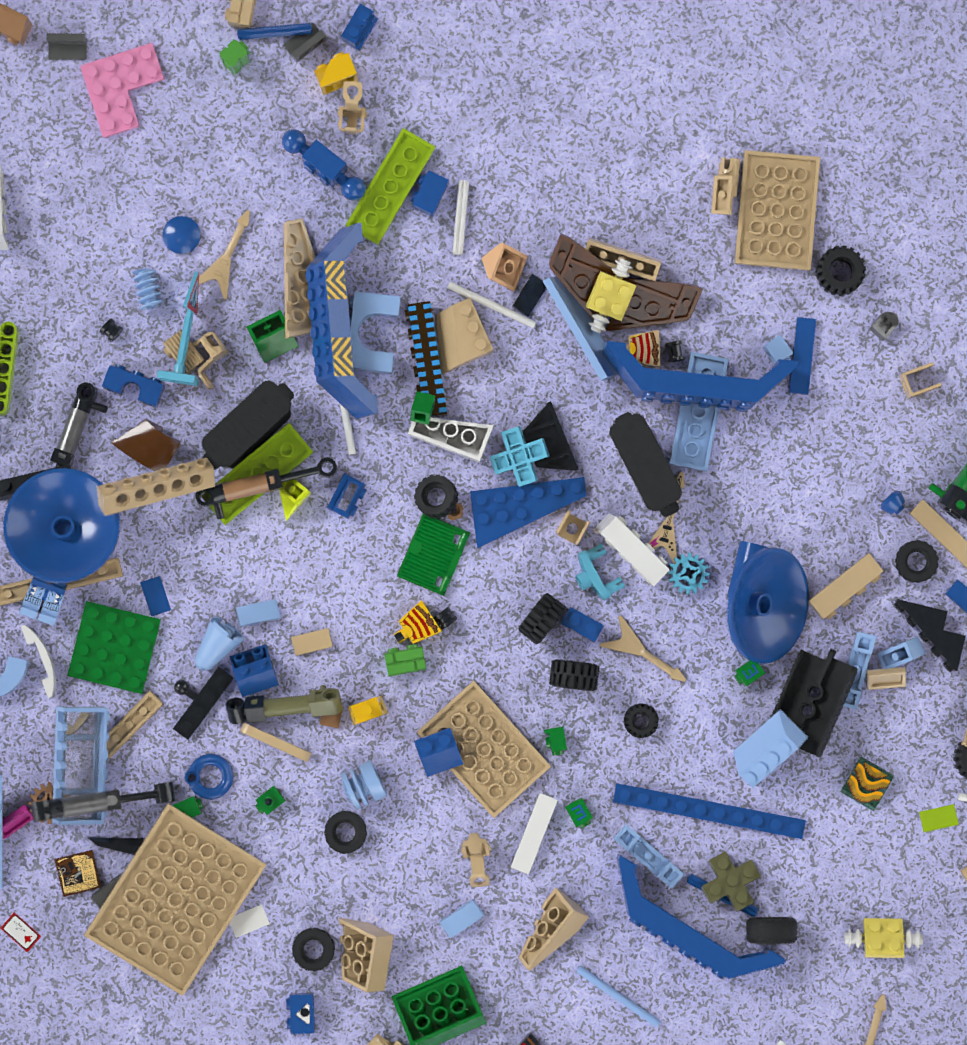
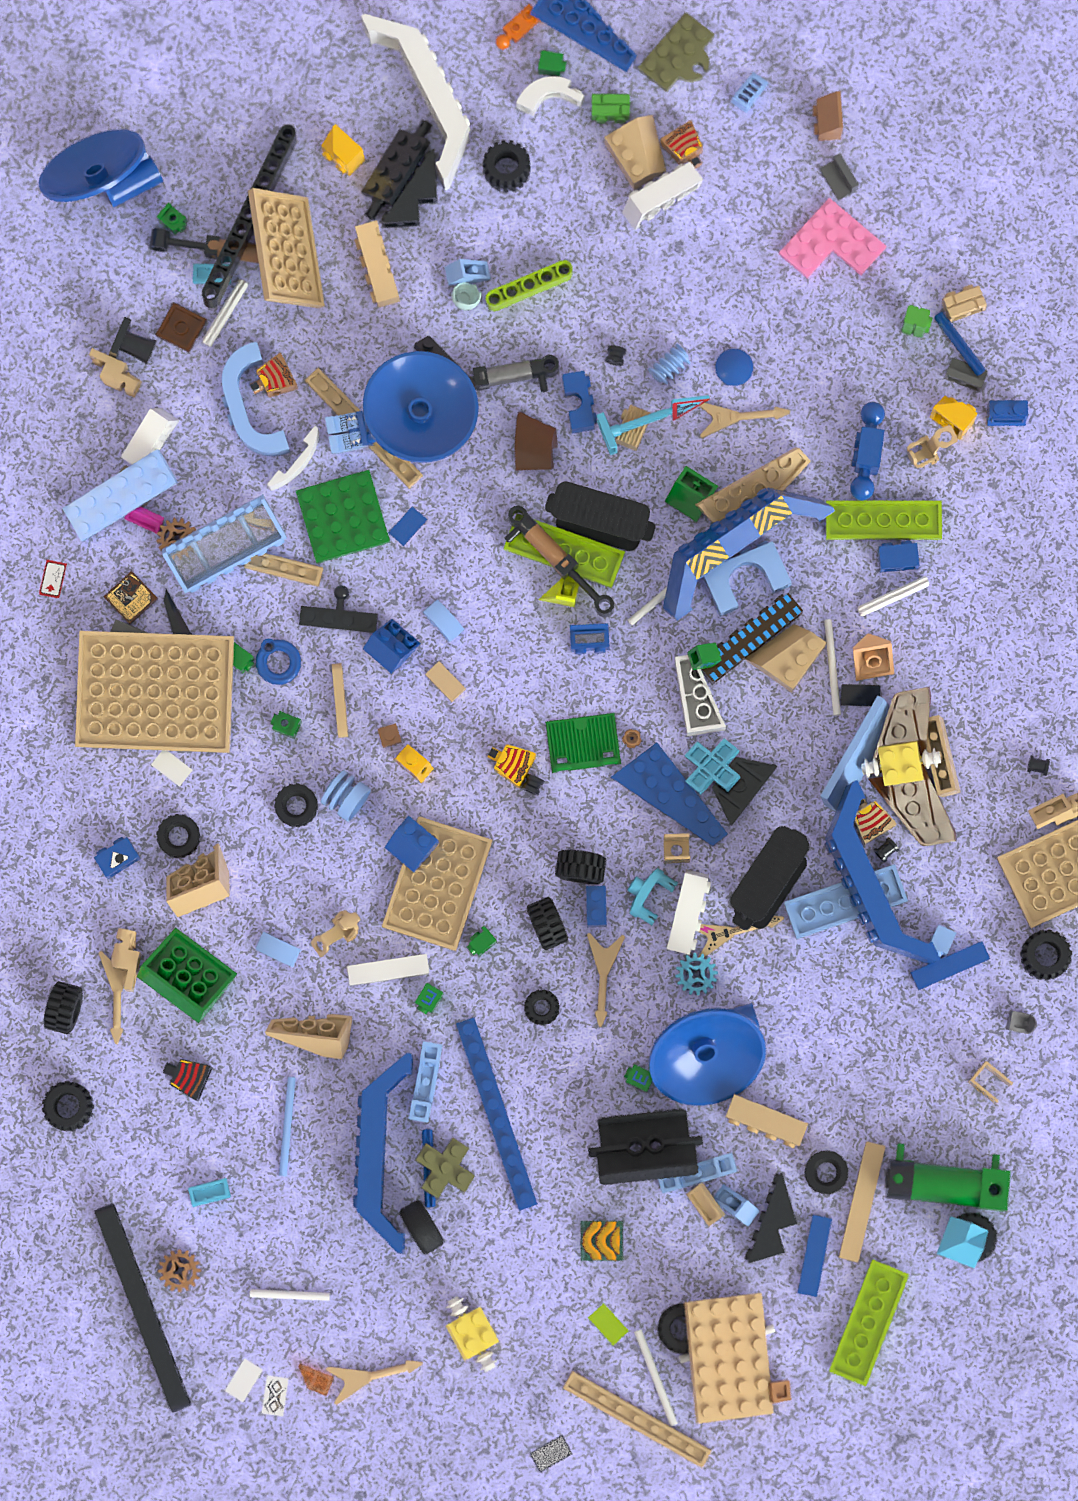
camera: 70 degrees right, 5 degrees down
(97, 802) = (200, 575): piece -> none
(155, 486) = (500, 466): tan brick -> none
(215, 353) = (648, 452): tan piece -> none
(217, 643) = (396, 600): light blue cone -> none
(257, 708) = (360, 668): olive piece -> none
(405, 660) = (475, 771): bright green brick -> none
(426, 486) = (634, 700): black tyre -> none
(676, 181) = (1038, 765): none -> black bush
(767, 748) = (581, 1130): light blue slope -> none
(893, 503) = (866, 1121): blue cone -> none

